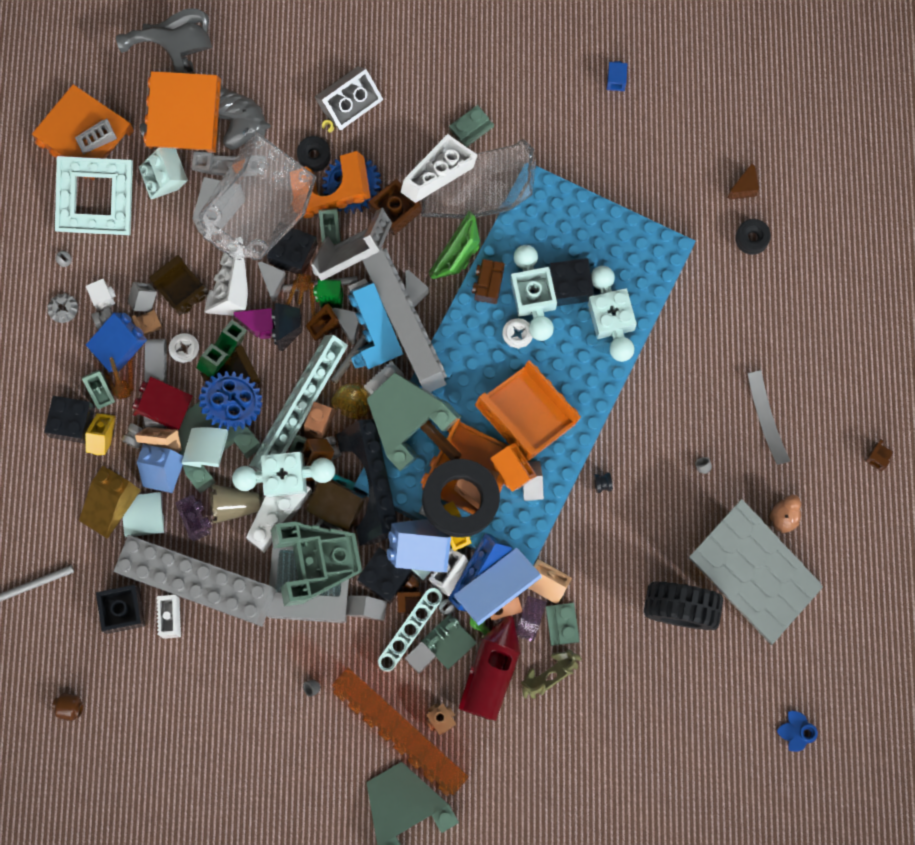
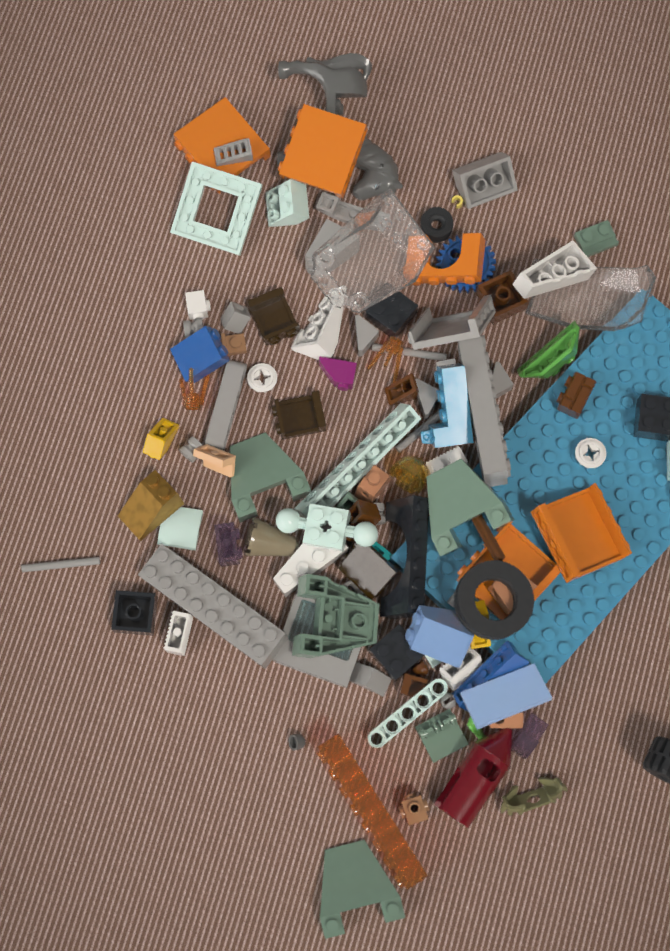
camera: 15 degrees right, 0 degrees up
(60, 261) = (168, 264): light grey hinge -> none
(62, 316) = (155, 315): light grey gear -> none
(67, 706) = (59, 692): reddish brown head -> none
(69, 419) = (135, 416): black brick -> none
(98, 389) = (170, 395): sand green slope -> none
(159, 467) = (208, 487): medium blue slope -> none
(162, 403) = (227, 425): dark red panel -> none
(205, 447) = (257, 479): light aqua slope -> none
(224, 347) = (299, 389): dark green arch -> none
(240, 389) = (281, 450): blue gear -> none
(287, 325) = (368, 382): black slope -> none
(329, 293) = (416, 362): green brick -> none
(330, 225) = (434, 297): sand green slope -> none
(420, 657) = (409, 743): light grey panel -> none
(513, 467) = (553, 584): orange brick -> none
(533, 304) = (627, 411): light aqua brick -> none
(534, 489) = (566, 602): slope -> none
(552, 583) = (558, 709): light nougat panel -> none
(562, 624) = (557, 750): sand green plate -> none
(603, 482) = (634, 622): black wheel -> none

